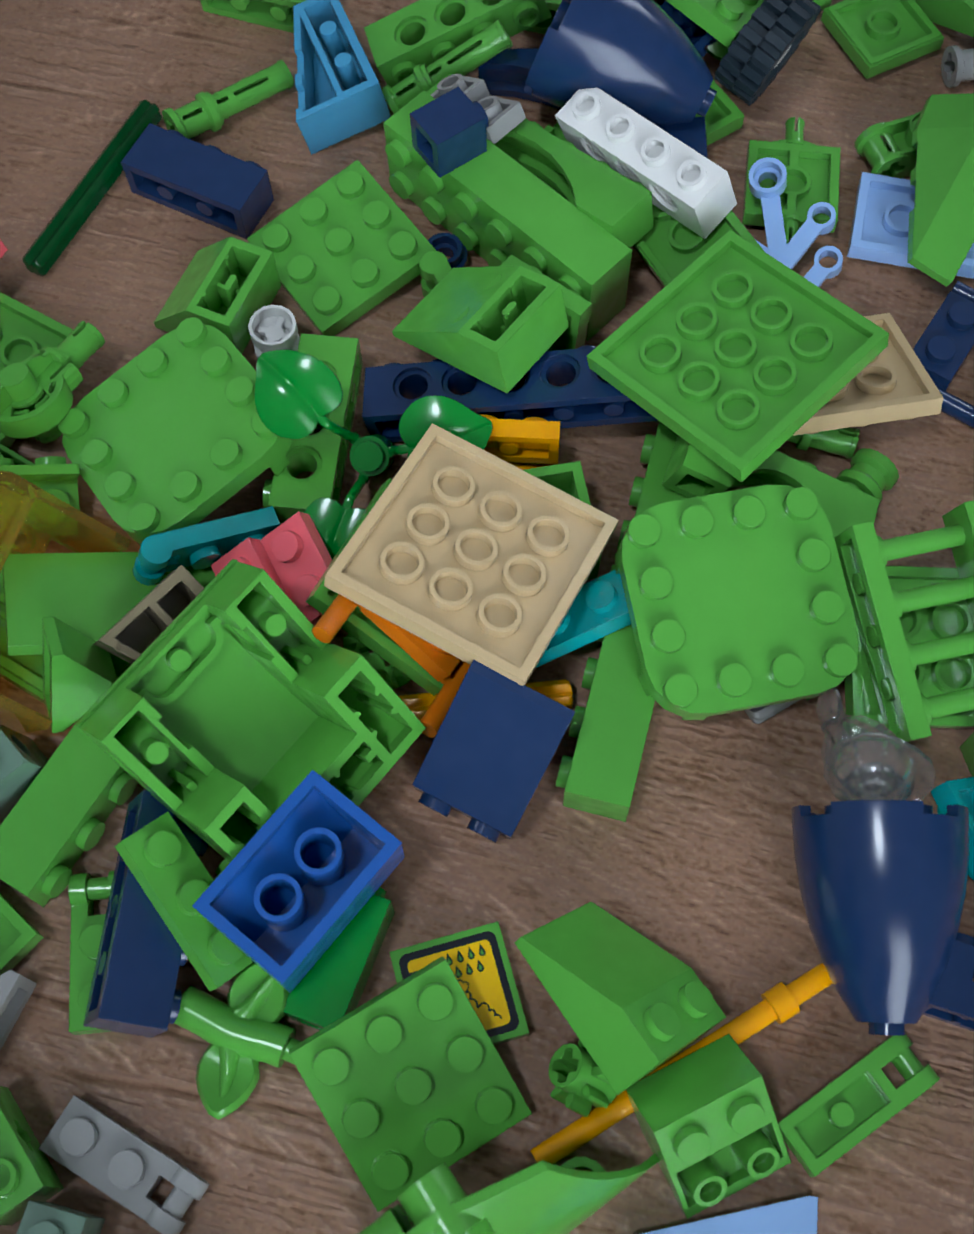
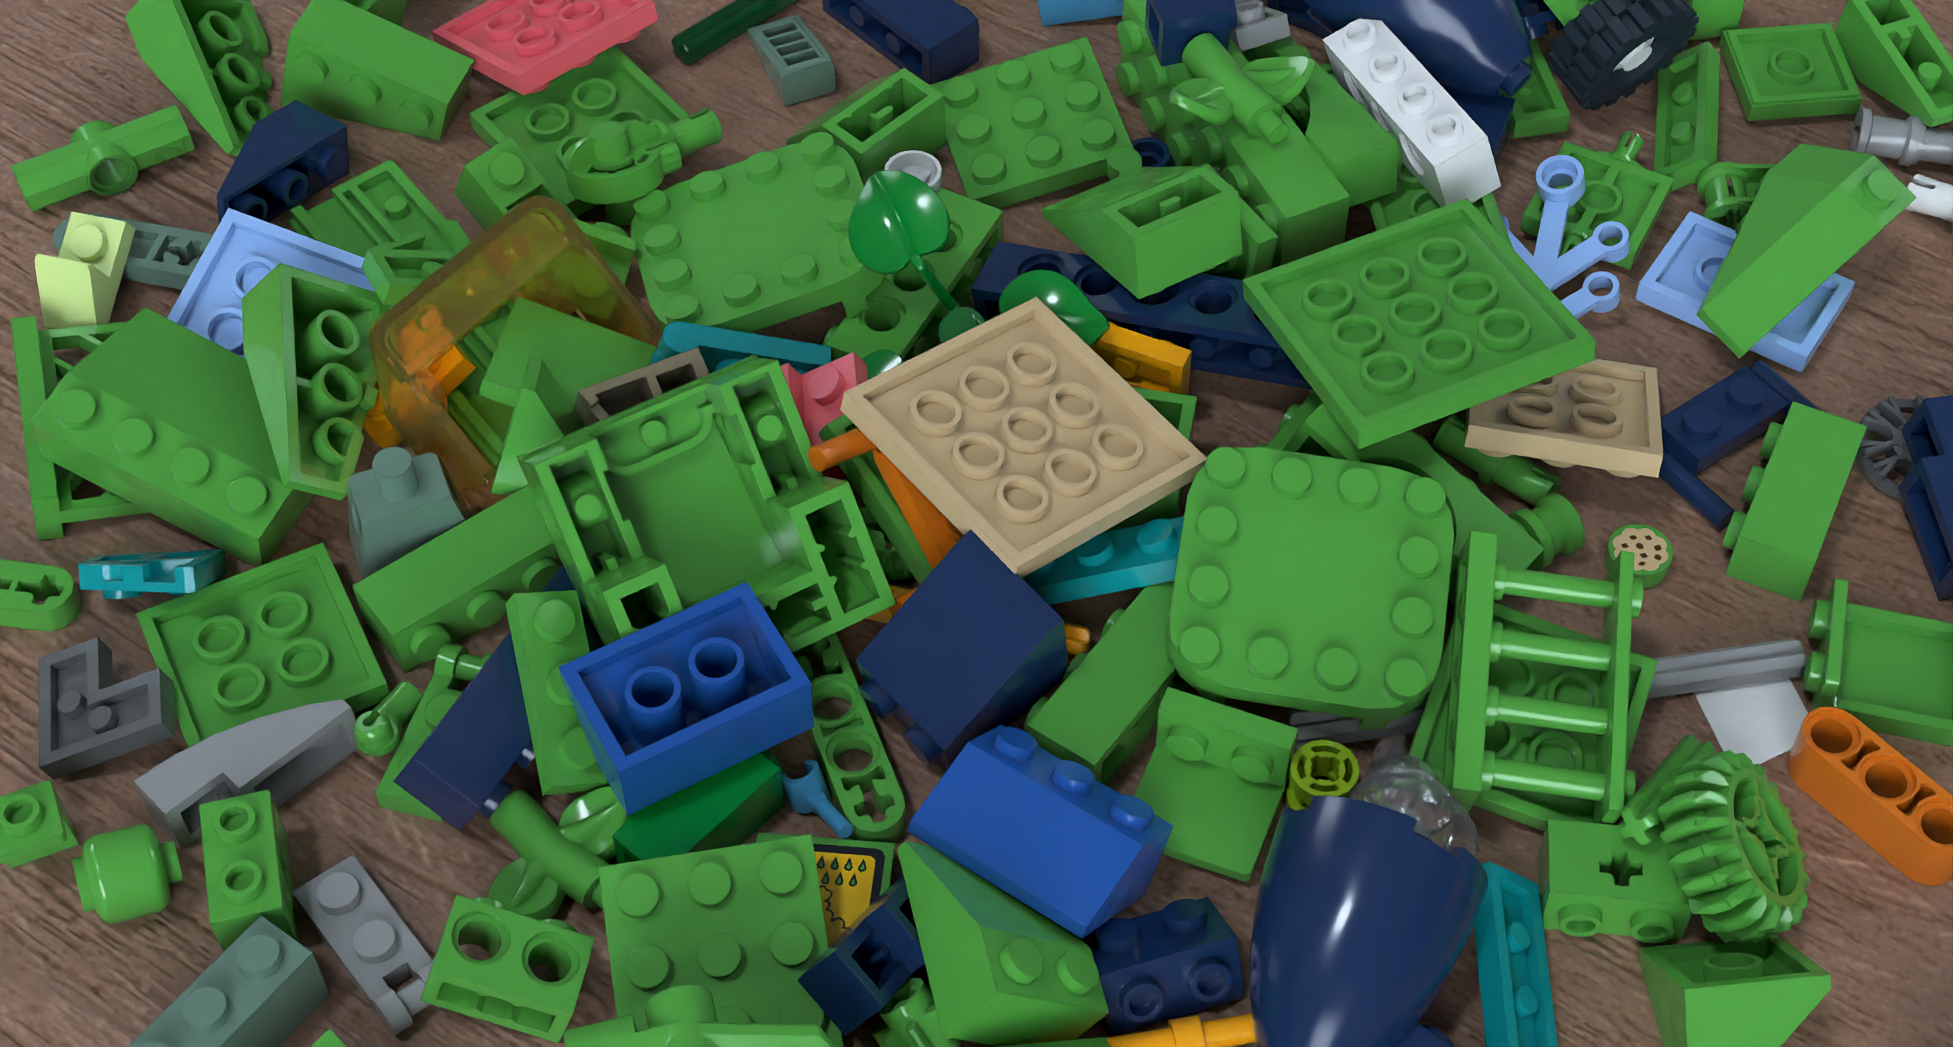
camera: 20 degrees right, 15 degrees down
(48, 972) = (380, 730): none -> bright green arm
(144, 264) = (793, 59): none -> sand green slope
(250, 1170) = (504, 986): none -> bright green brick
(418, 902) = (812, 795): none -> dark azure hand
(423, 833) = (849, 732): none -> bright green beam
(513, 185) = (1246, 94): none -> bright green plant
(527, 1038) = (867, 961): none -> dark blue slope
(613, 881) = (1043, 830): none -> blue slope
(714, 788) = (1216, 781): none -> bright green bracket
(738, 944) = (1165, 964): none -> dark blue bracket
(788, 764) = (1320, 770): none -> lime wheel
(827, 90) = (1687, 115): none -> bright green plate
(935, 474) = (1650, 548): none -> tile

